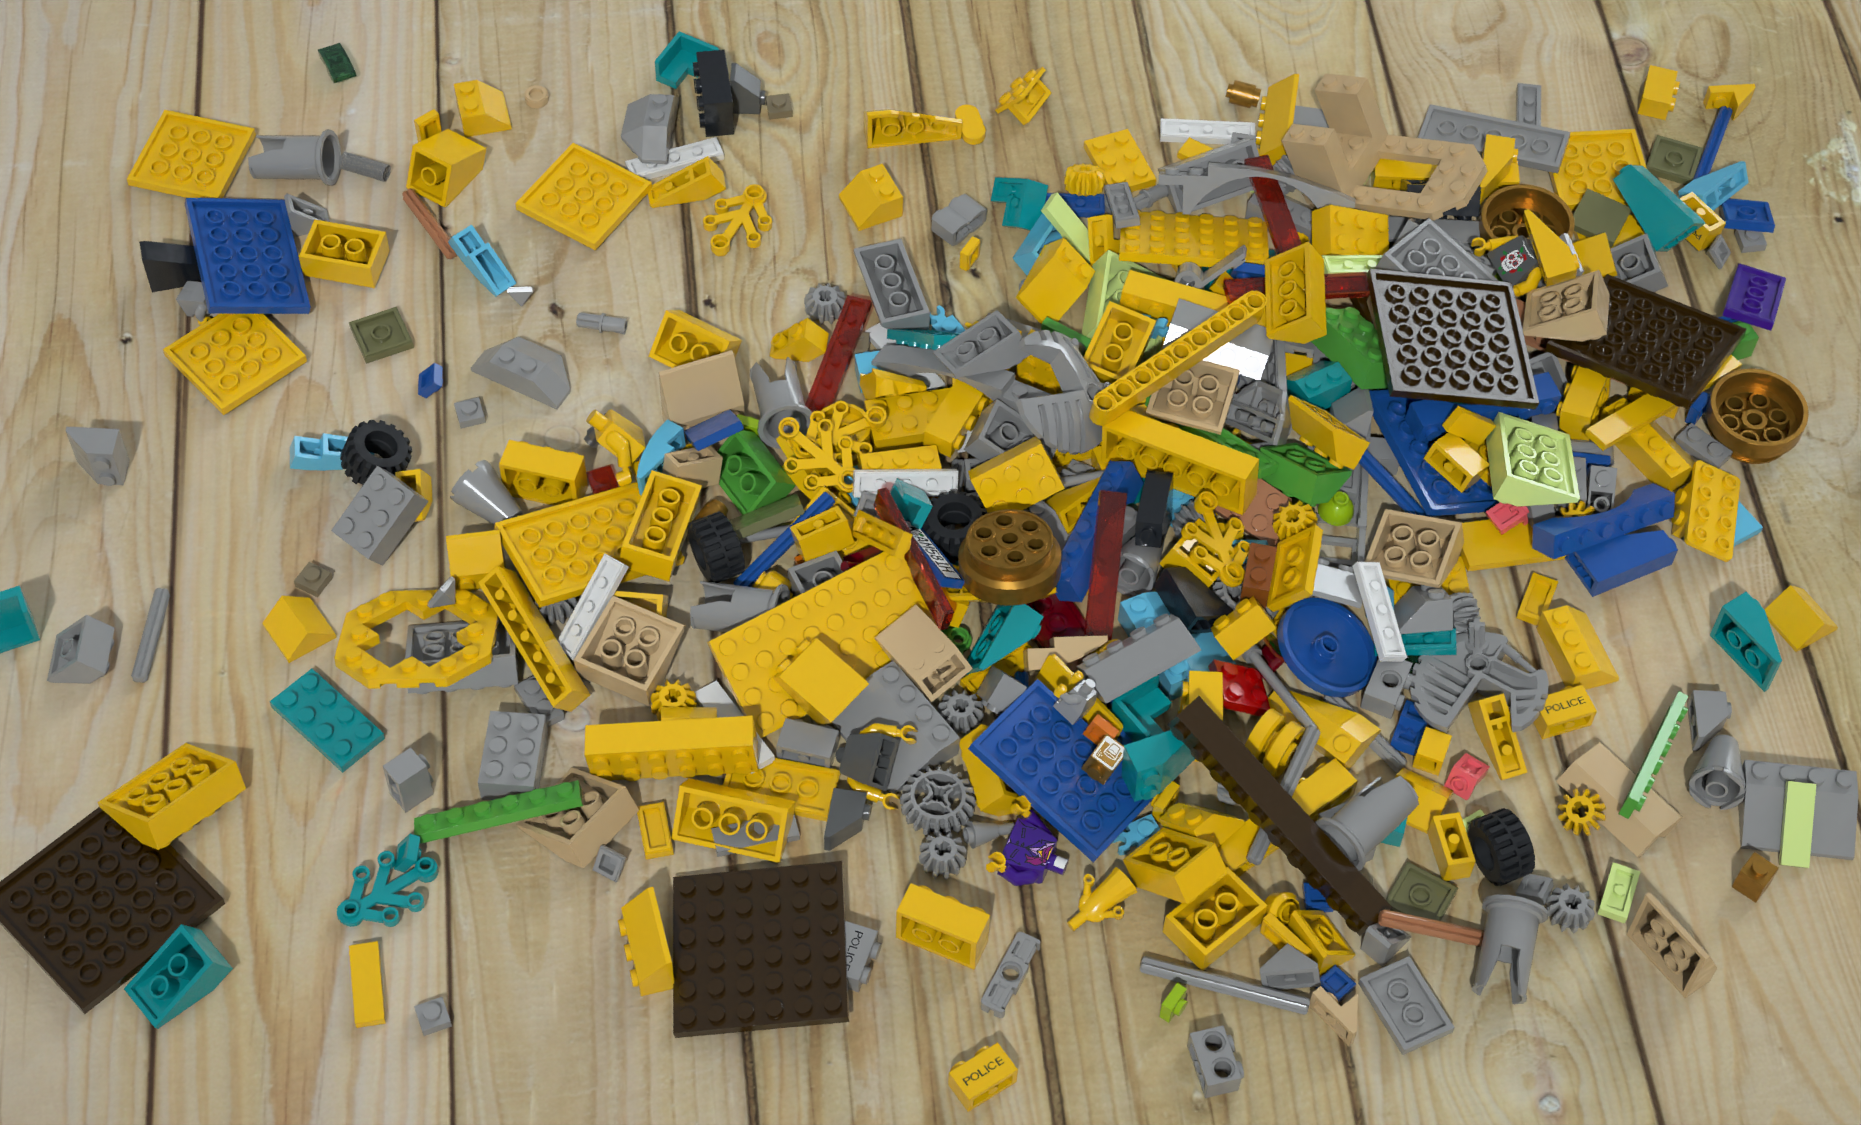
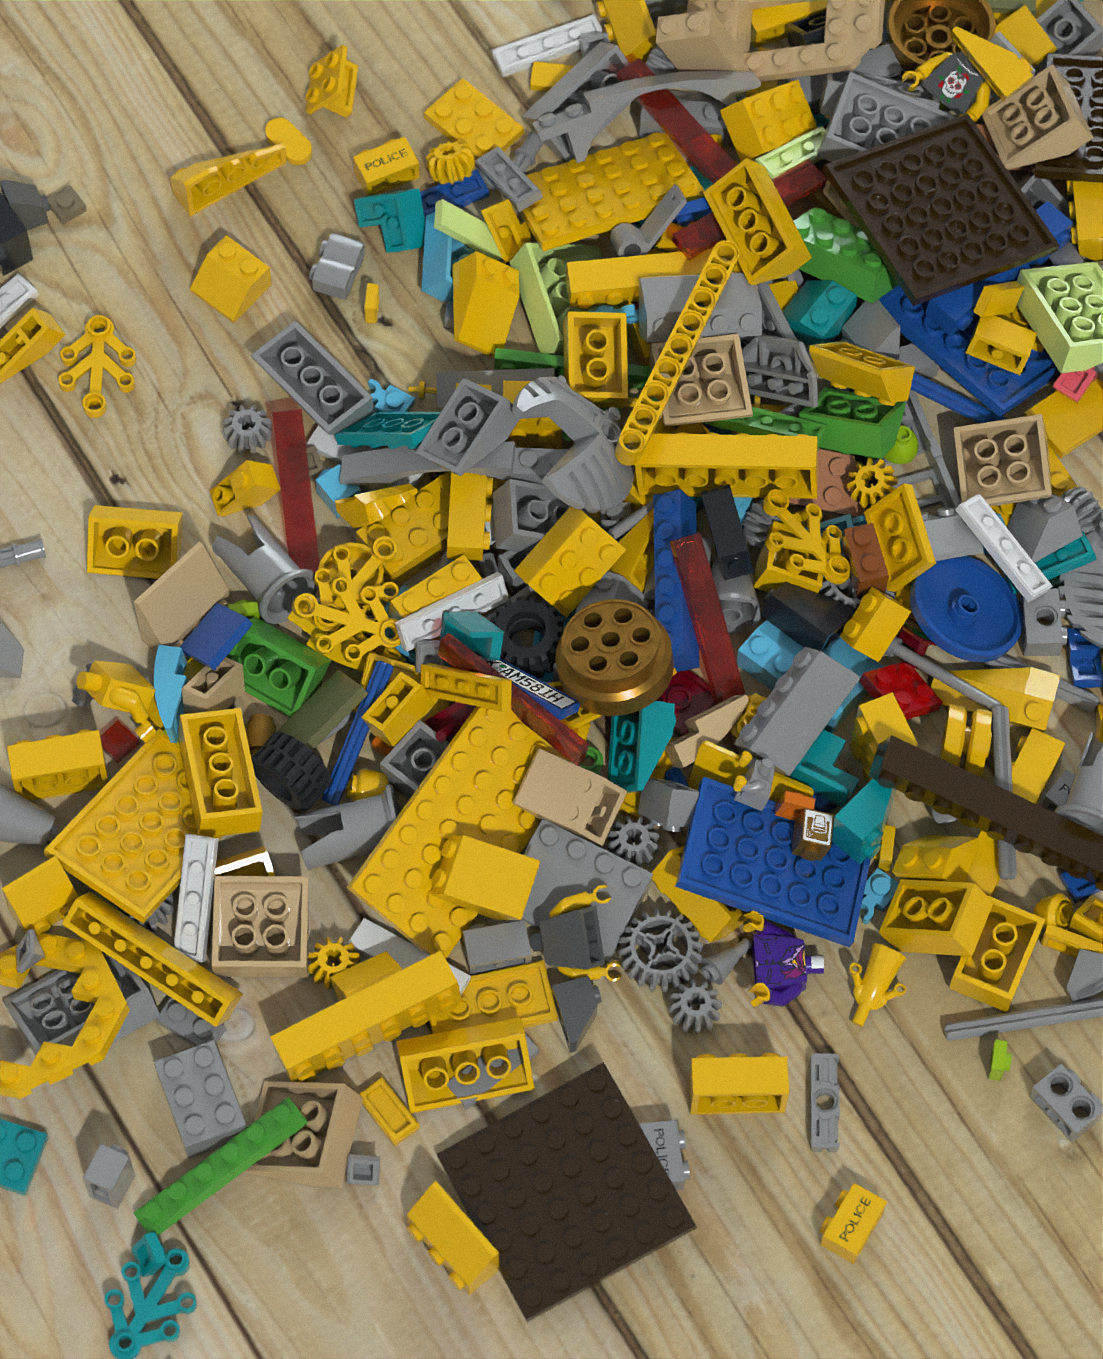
camera: 25 degrees left, 10 degrees up
(1035, 164) = (386, 166): none -> yellow brick

